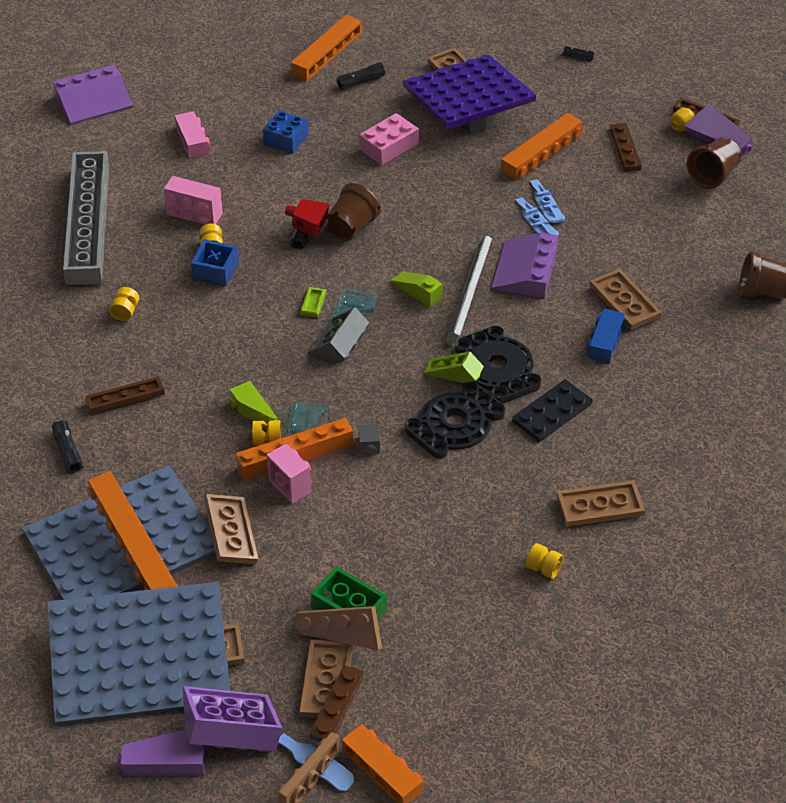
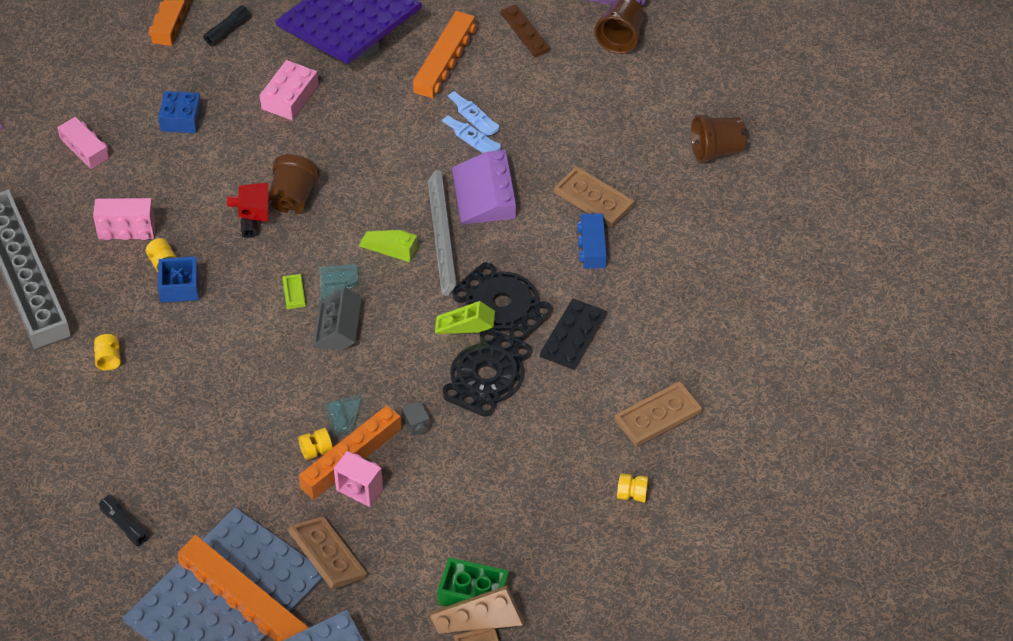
camera: 20 degrees left, 5 degrees up
(124, 395) = (154, 448): reddish brown plate -> none
(250, 403) = (286, 419): lime slope -> none

